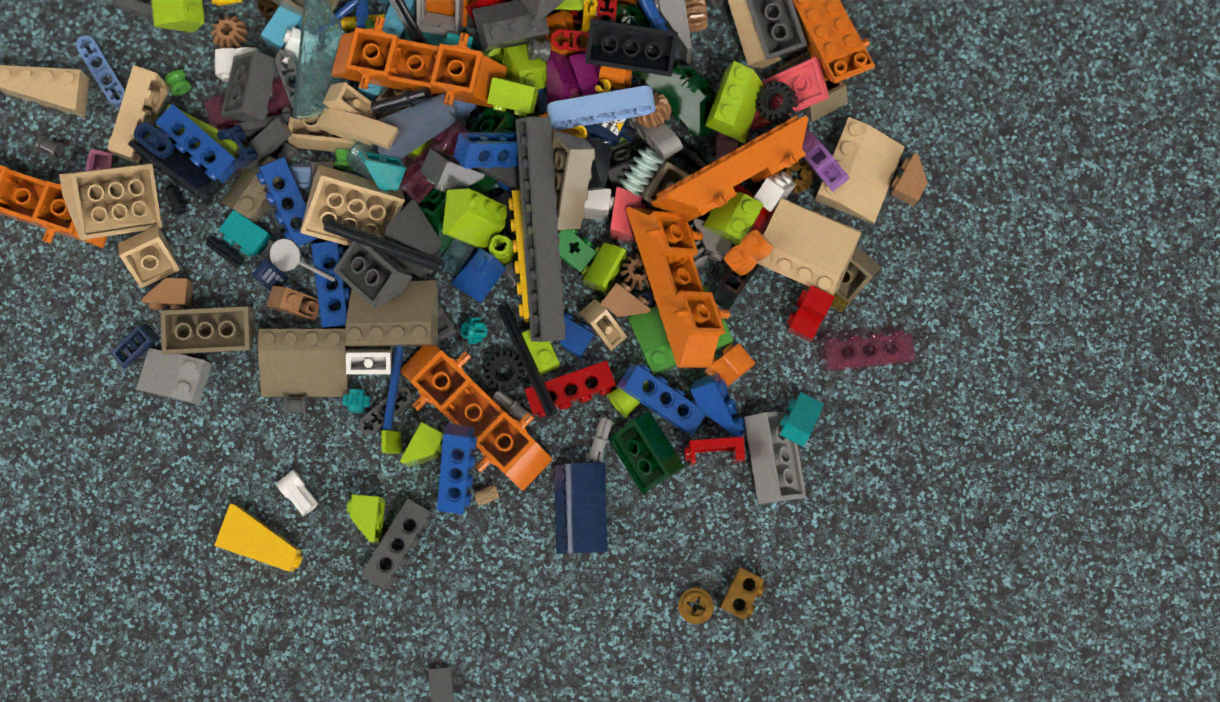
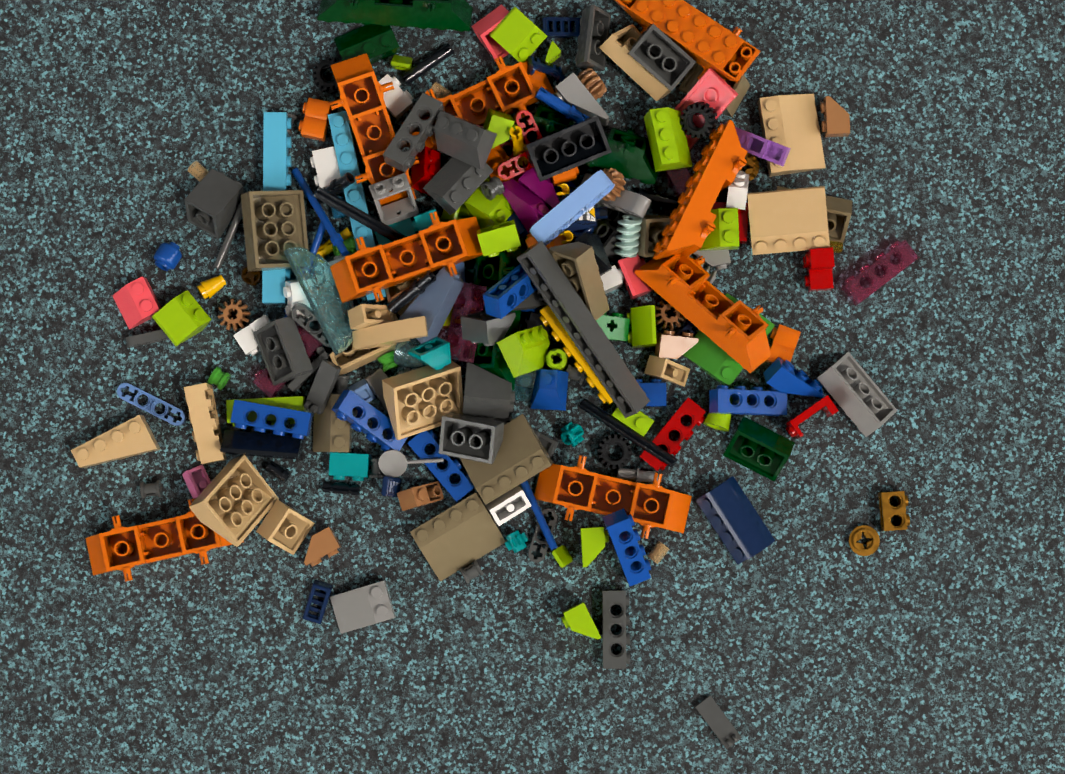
camera: 30 degrees left, 5 degrees up
(154, 141) = (240, 435): dark blue plate -> none
(207, 330) = (369, 556): dark tan slope -> none
(246, 154) = (315, 407): dark blue piece -> none
(254, 539) = (504, 691): yellow slope -> none
(294, 488) = (511, 635): white piece -> none
(384, 245) = (470, 412): black axle -> none
(600, 439) = (718, 459): light grey axle -> none
(731, 287) = (748, 276): black slope -> none
(751, 249) = (747, 256): orange brick -> none
(801, 419) = (860, 354): teal brick -> none

